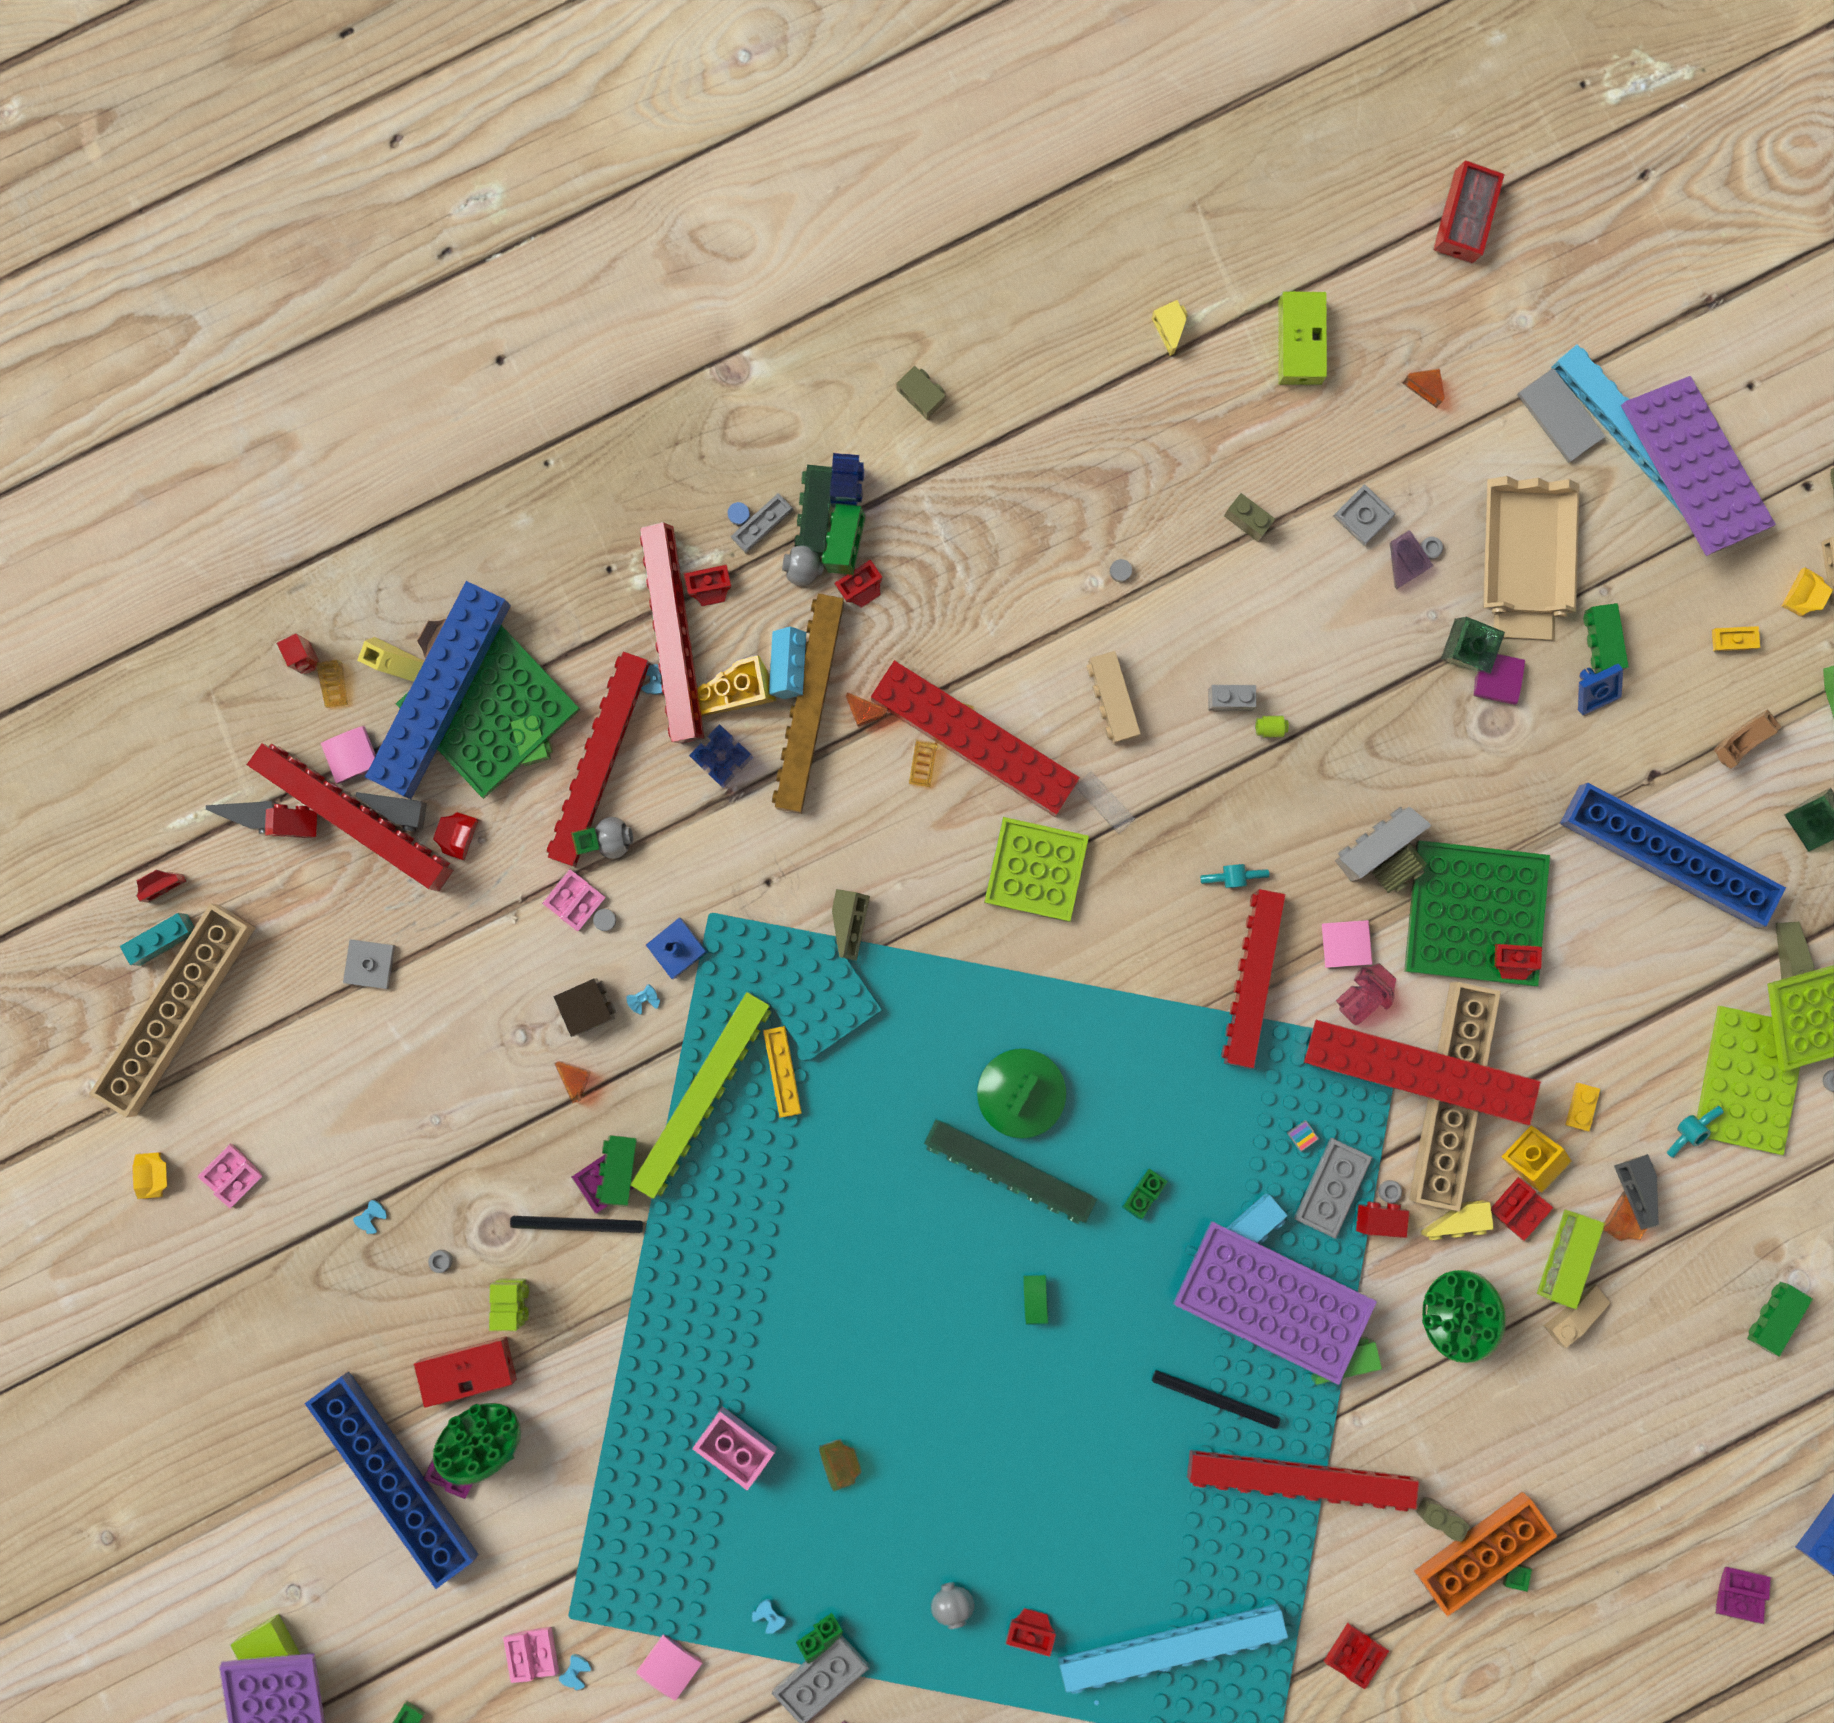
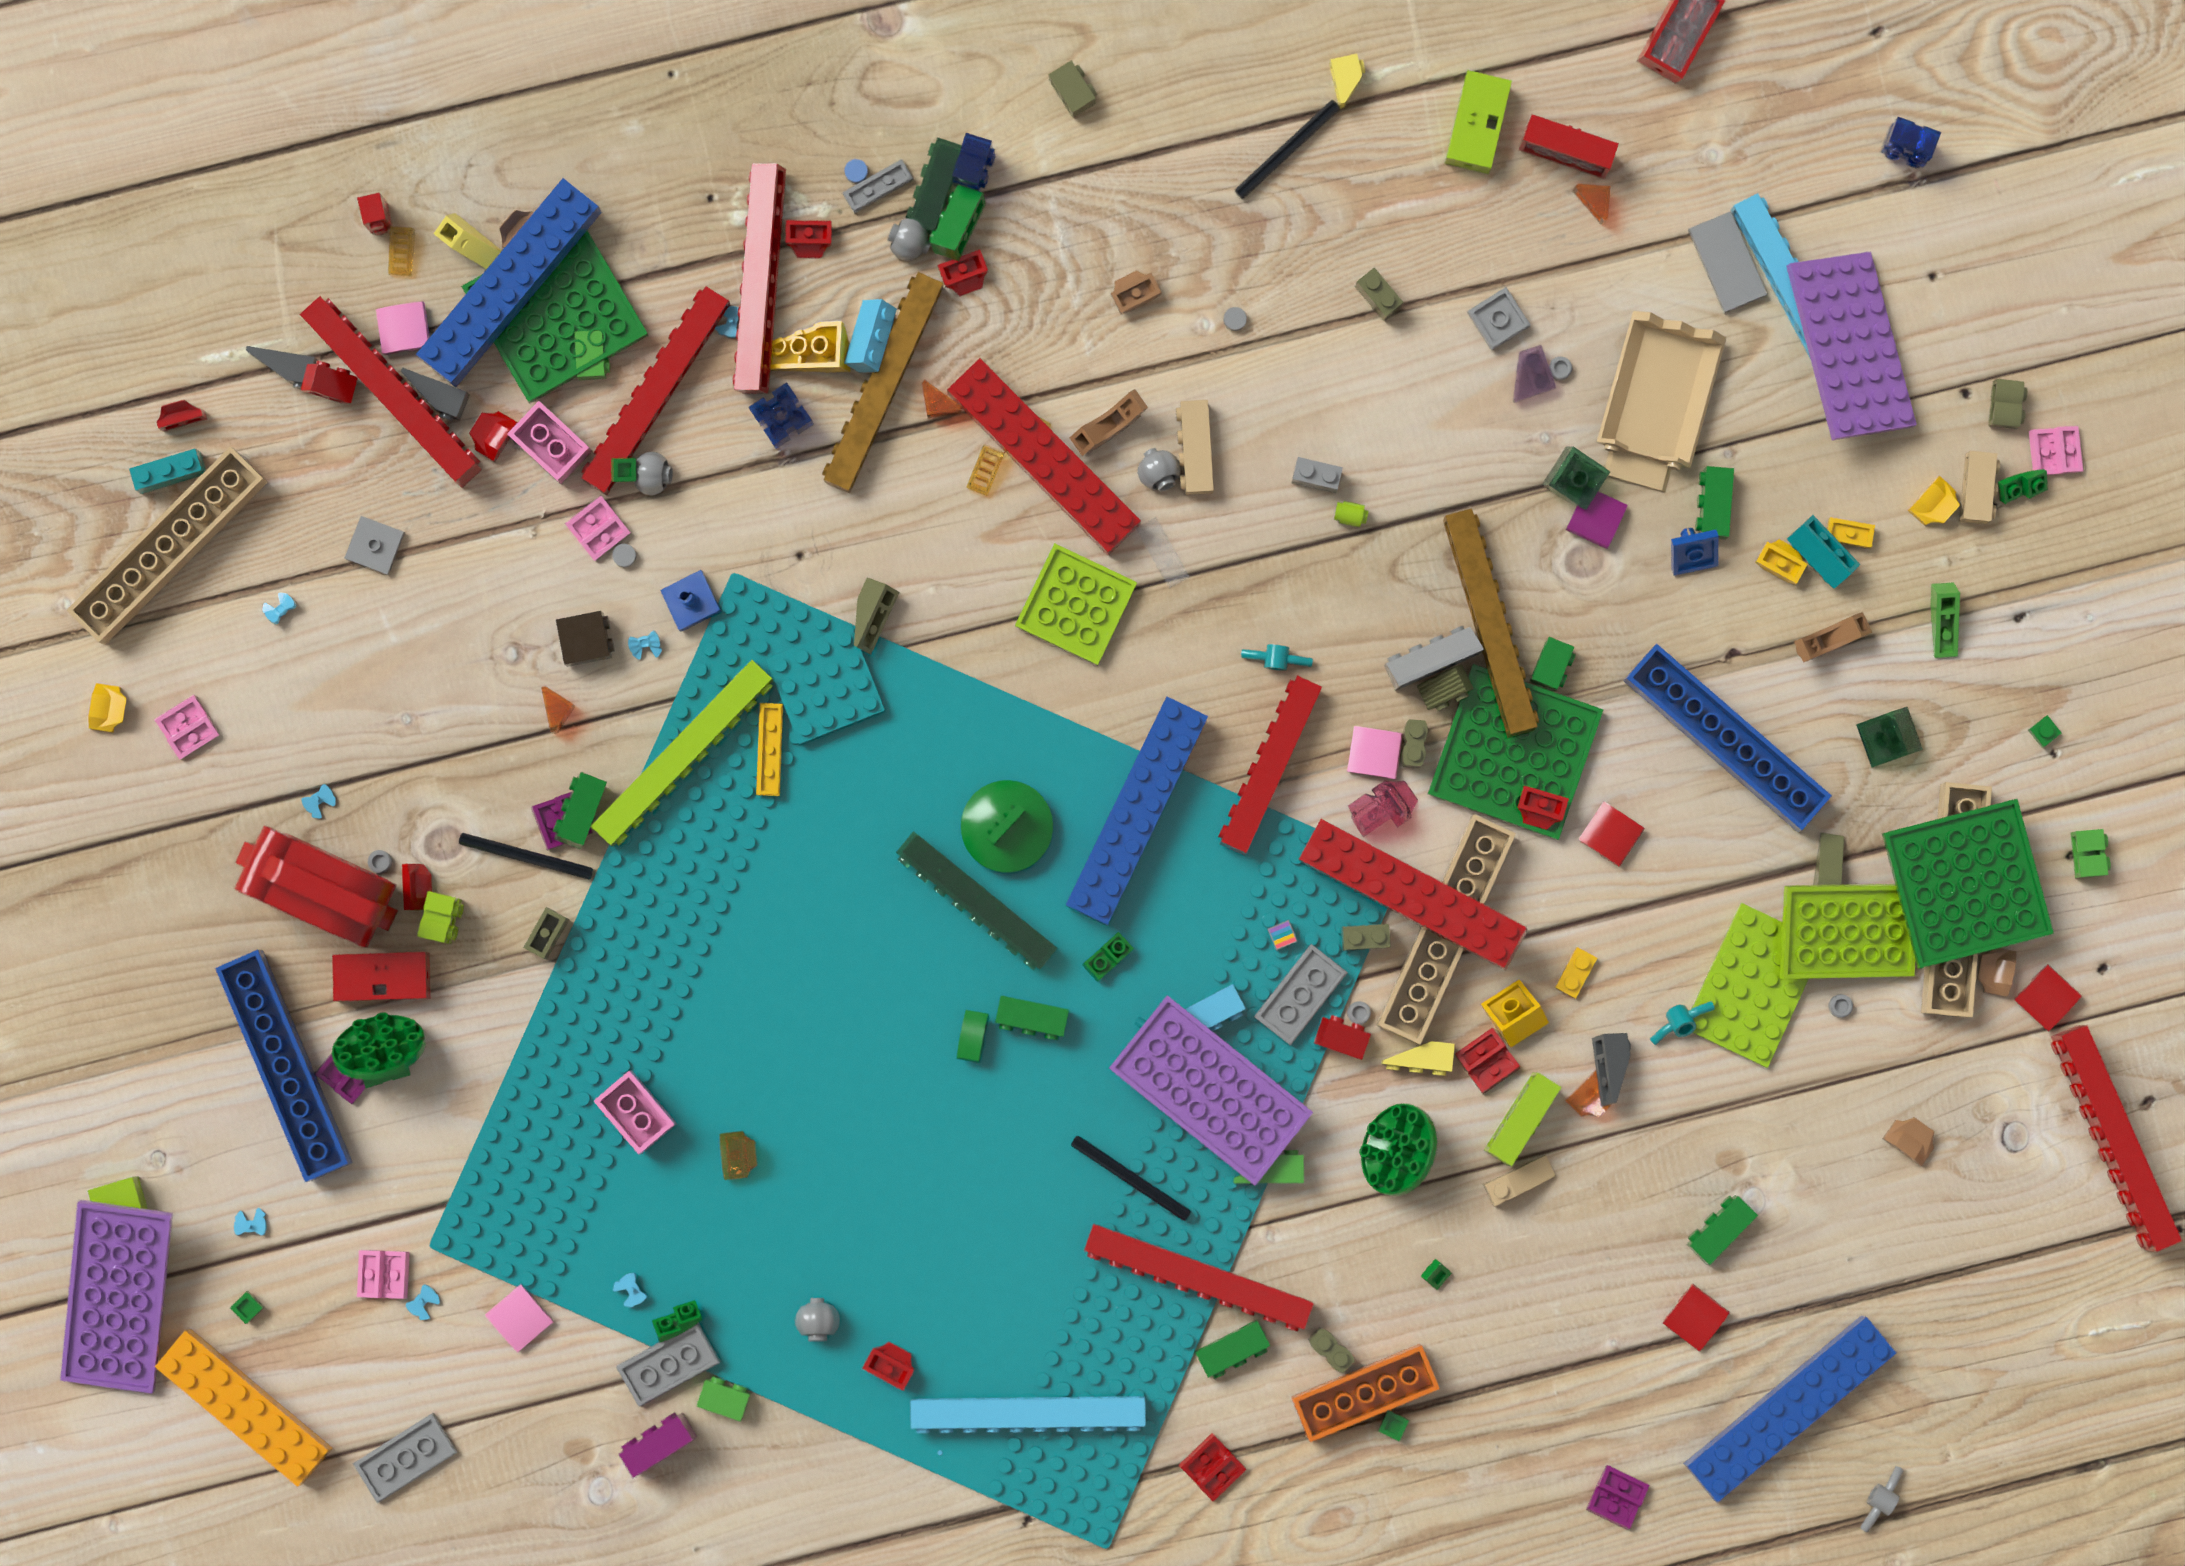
camera: 10 degrees right, 0 degrees up
(289, 1051) = (274, 614): none -> medium azure piece
(381, 1305) = (315, 886): none -> red piece
(402, 1635) = (257, 1225): none -> medium azure piece
(478, 1276) = (416, 884): none -> red slope
(510, 831) = (549, 442): none -> bright pink brick
(611, 1295) = (546, 933): none -> olive brick
(881, 1701) = (724, 1399): none -> bright green piece
(1022, 565) = (1134, 291): none -> medium nougat slope
(1029, 693) = (1109, 424): none -> medium nougat arch
(1084, 726) = (1159, 469): none -> light grey plant
(1087, 1269) = (1031, 1017): none -> green brick
(1131, 403) = (1287, 149): none -> black axle
(1140, 1051) = (1136, 811): none -> blue brick
(1349, 1540) = (1233, 1349): none -> green brick
(1381, 922) = (1414, 736): none -> olive brick
(1382, 1120) = (1365, 937): none -> olive brick
(1392, 341) = (1568, 146): none -> red brick
(1427, 799) = (1490, 622): none -> pearl gold brick
(1492, 823) = (1552, 664): none -> green brick
(1522, 1423) = (1436, 1274): none -> green plate
(1584, 969) = (1611, 834): none -> red slope
(1680, 679) = (1782, 561): none -> yellow slope
(1705, 266) = (1910, 142): none -> clear blue brick
(1718, 662) = (1823, 552): none -> teal brick
(1775, 1407) = (1696, 1317): none -> red slope

